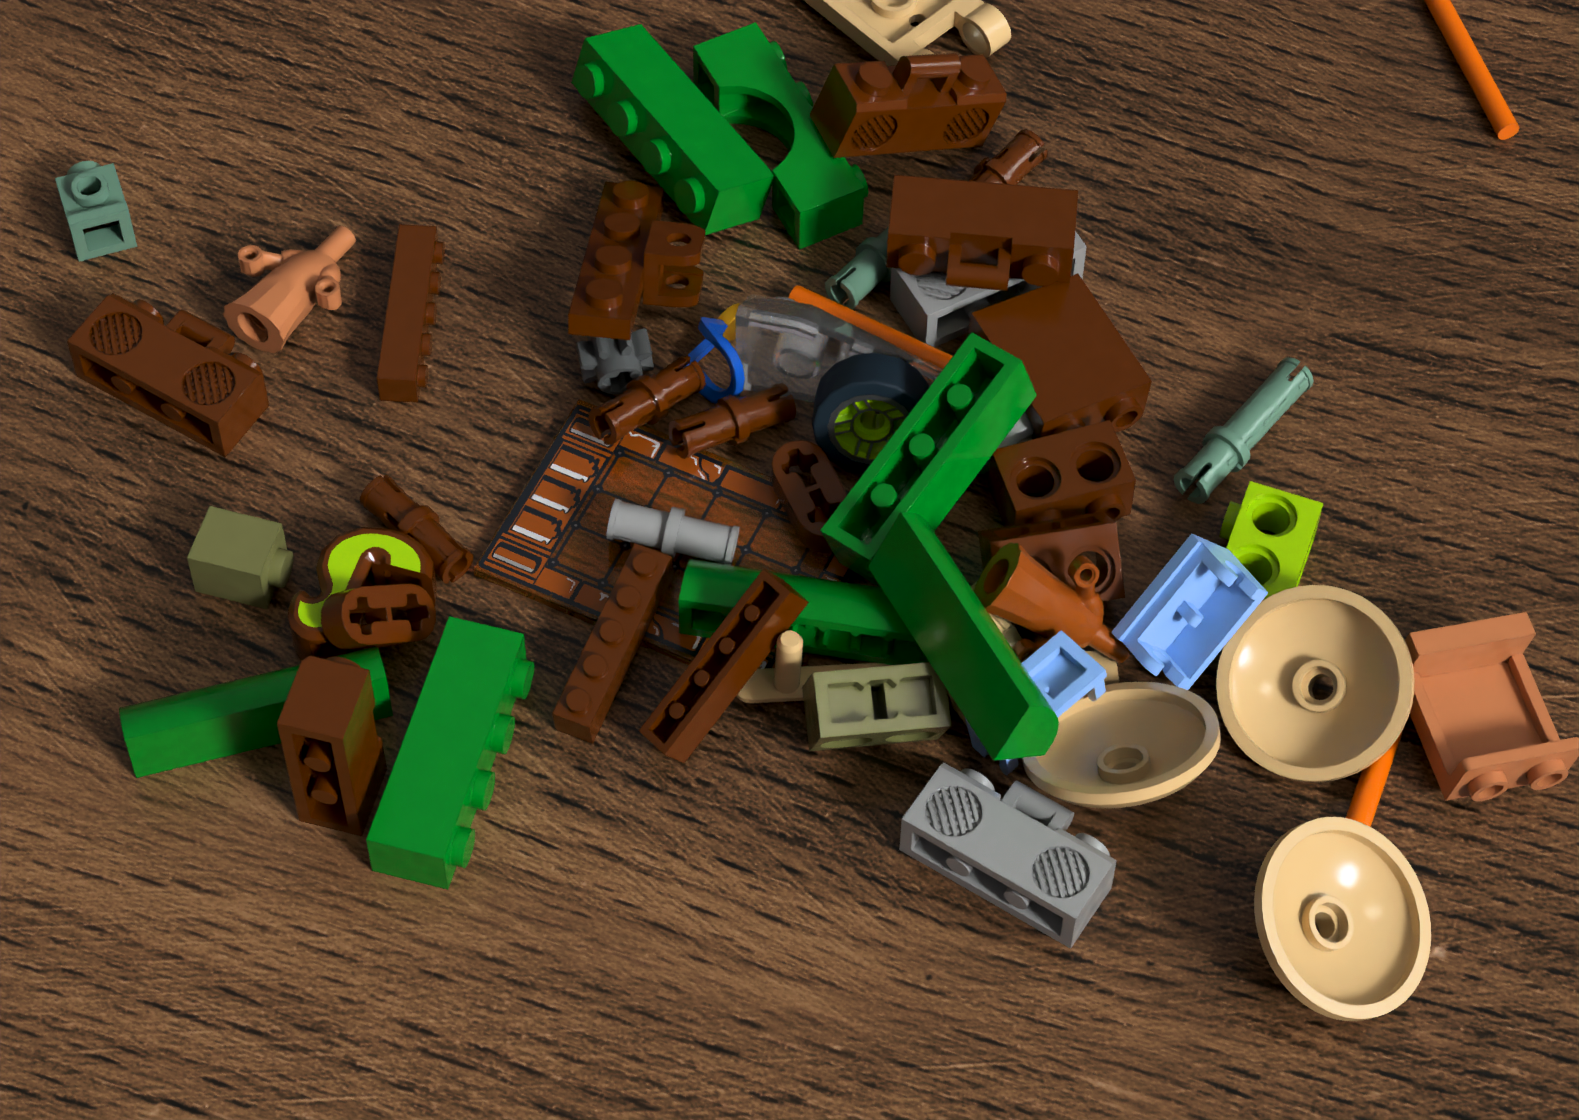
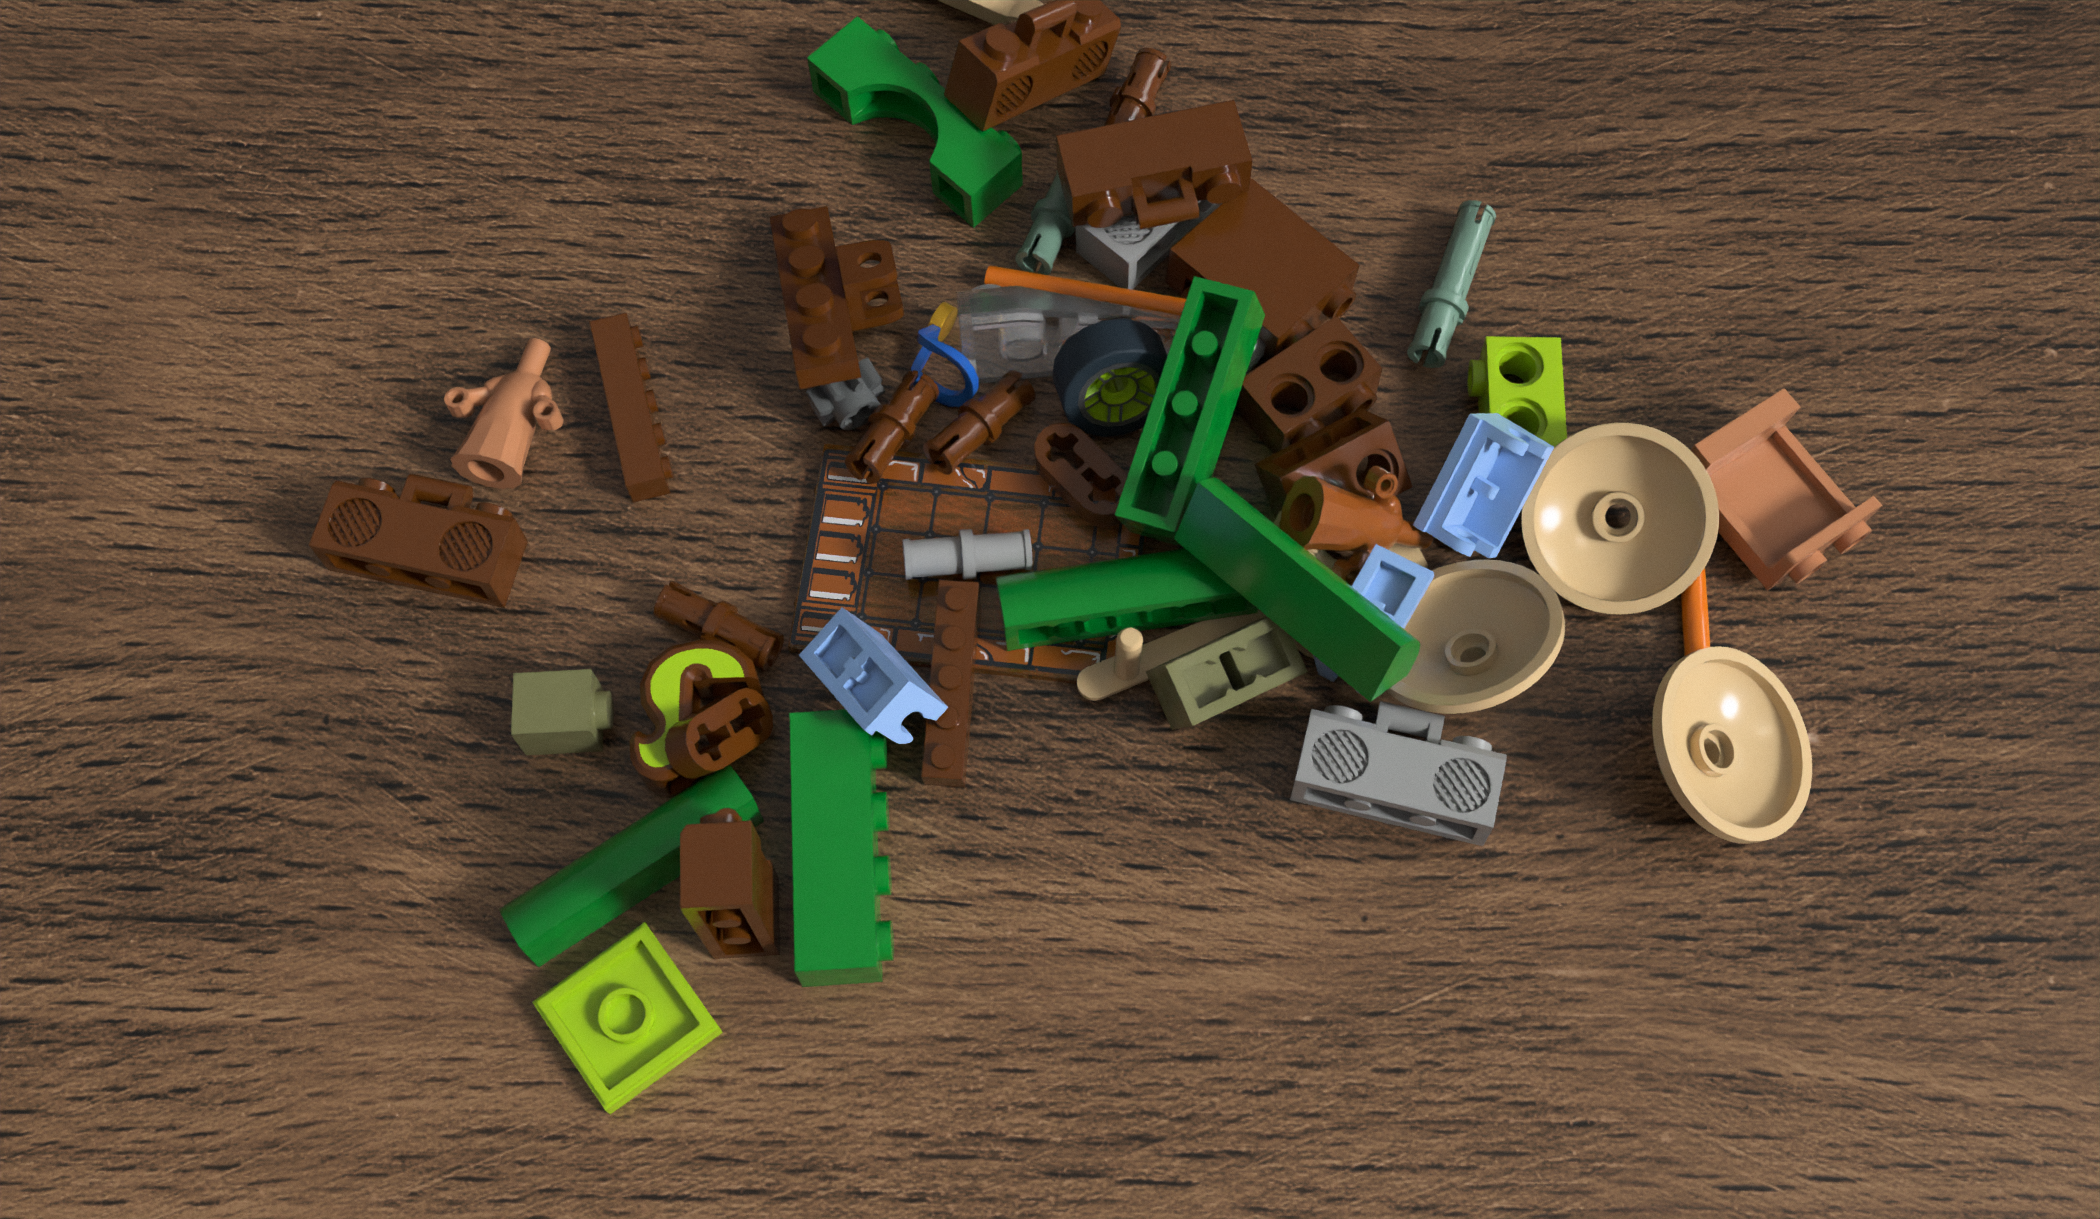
camera: 15 degrees left, 10 degrees up
(93, 198) = (285, 395): sand green brick -> none
(200, 844) = (627, 1018): none -> lime tile
(535, 606) = (869, 677): none -> light blue hinge
(672, 129) = (815, 145): green brick -> none
(723, 666) = (1071, 680): reddish brown piece -> none

